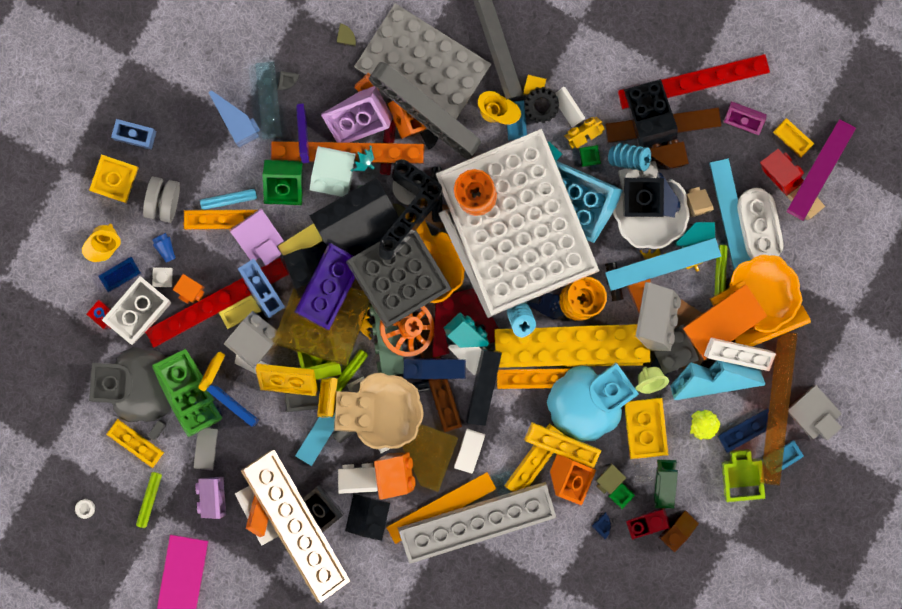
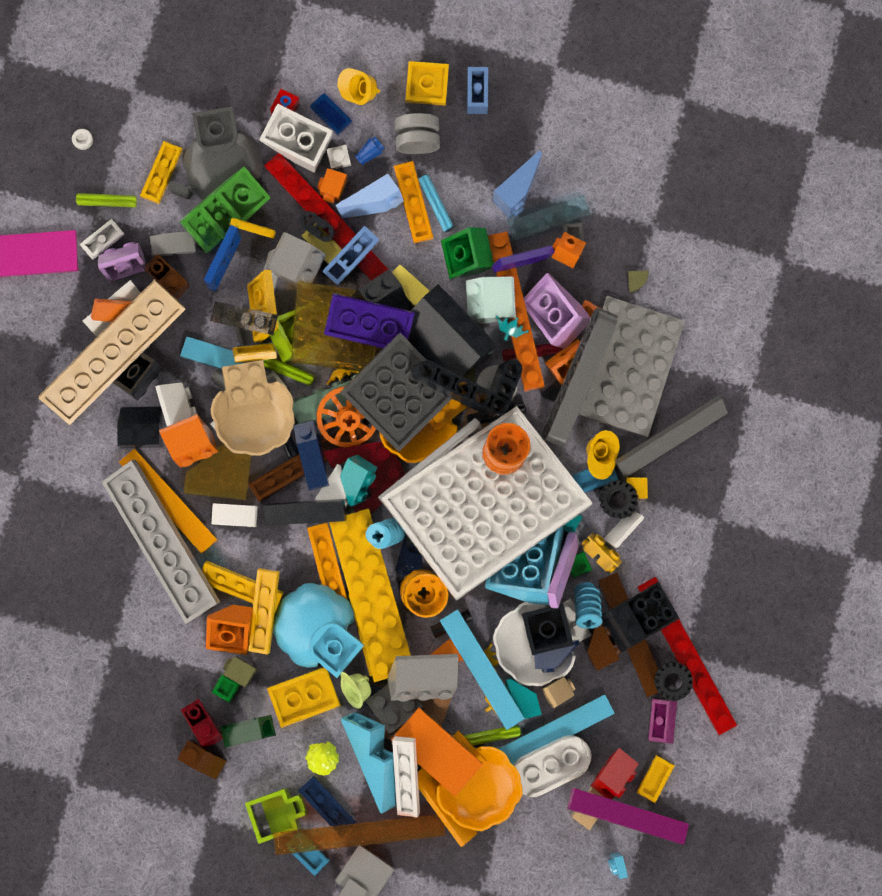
camera: 80 degrees right, 5 degrees down
(185, 511) = (102, 239): none -> white slope
(211, 251) = (372, 199): none -> light blue slope
(227, 315) = (314, 230): none -> black beam
(236, 461) = (166, 276): none -> reddish brown slope
(258, 237) = (403, 242): lavender piece -> none
(294, 399) = (244, 318): none -> clear smoke plate
(303, 90) = (568, 249): none -> orange brick
(594, 170) = (562, 570): none -> lavender tile
(602, 525) = (189, 676): dark blue tile -> none
(725, 99) = (683, 690): none -> black tyre
(861, 190) = (617, 865): none -> medium azure plate

